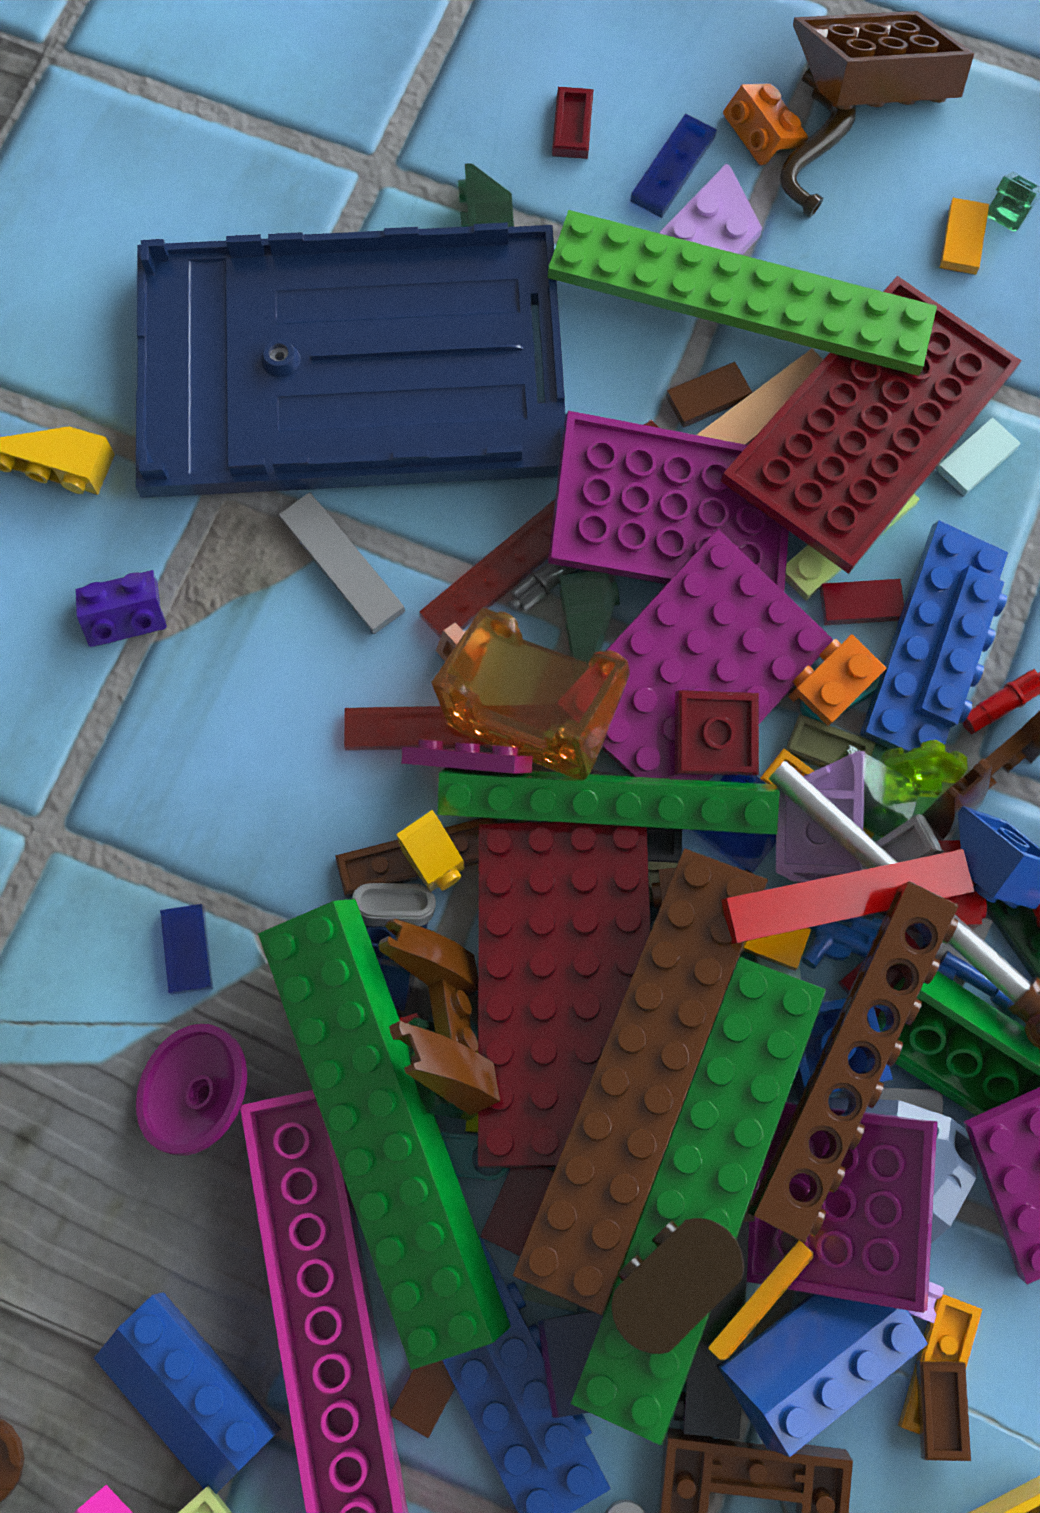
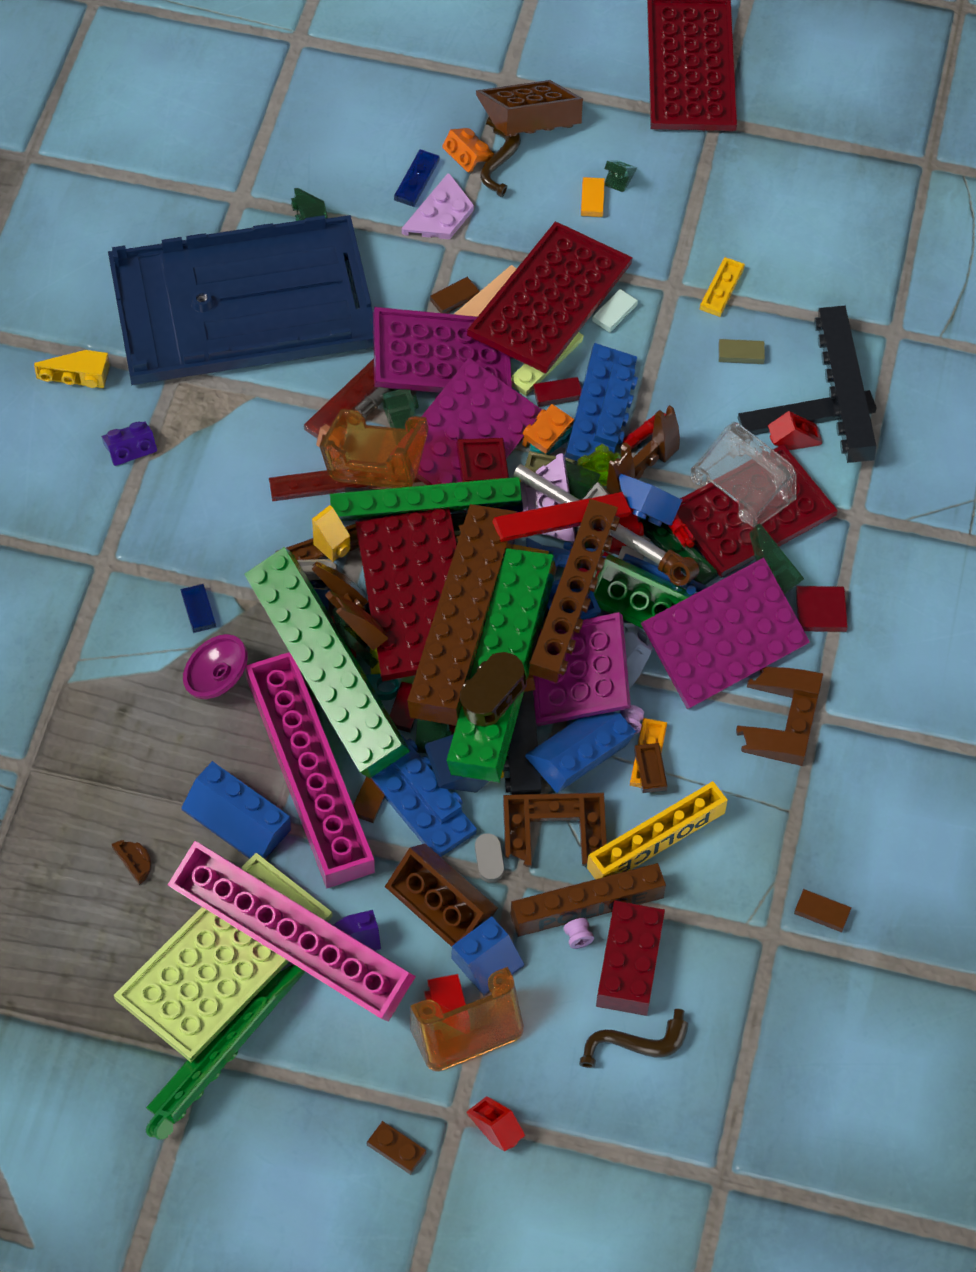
camera: 10 degrees left, 15 degrees down
(342, 563) = (254, 405): light grey tile -> none
(467, 756) = (322, 490): magenta plate -> none
(572, 122) = (353, 161): dark red tile -> none
(743, 292) = (465, 237): bright green plate -> none
(761, 1301) = (542, 717): light orange tile -> none

